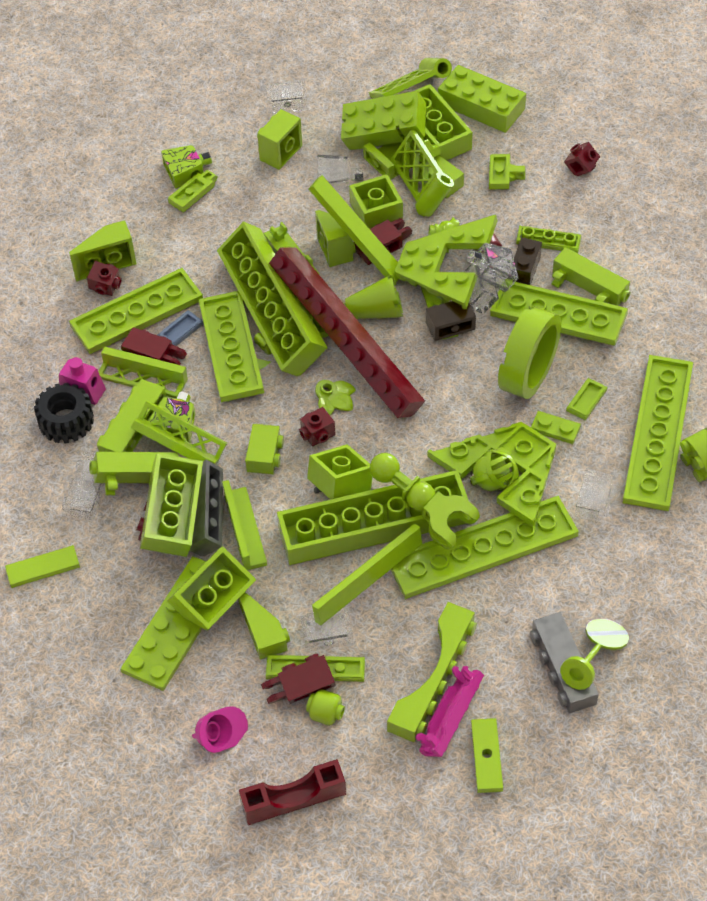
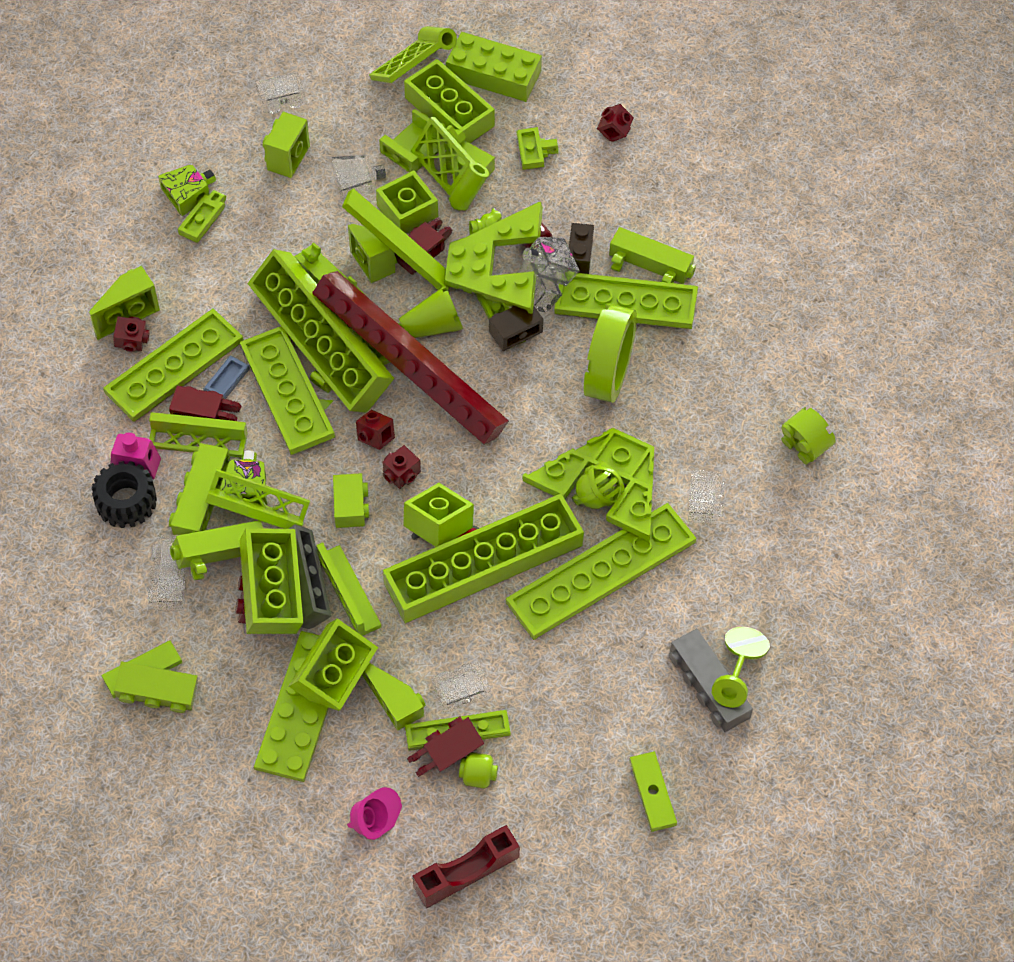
camera: 15 degrees left, 5 degrees up
(49, 583) = (155, 687): none -> lime brick
(301, 390) = (375, 429): none -> dark red brick
(337, 397) = (414, 429): lime plate -> none
(367, 574) = (492, 622): lime tile -> none
(379, 118) = (392, 108): lime piece -> none
(412, 711) = (567, 760): lime arch -> none
(421, 497) = (532, 530): lime piece -> none
(449, 712) = (606, 753): dark pink piece -> none
(550, 239) = (599, 217): lime tile -> none
(556, 427) = (648, 427): lime plate -> none
(586, 399) = (674, 391): lime tile -> none
(658, 433) = (754, 417): lime plate -> none

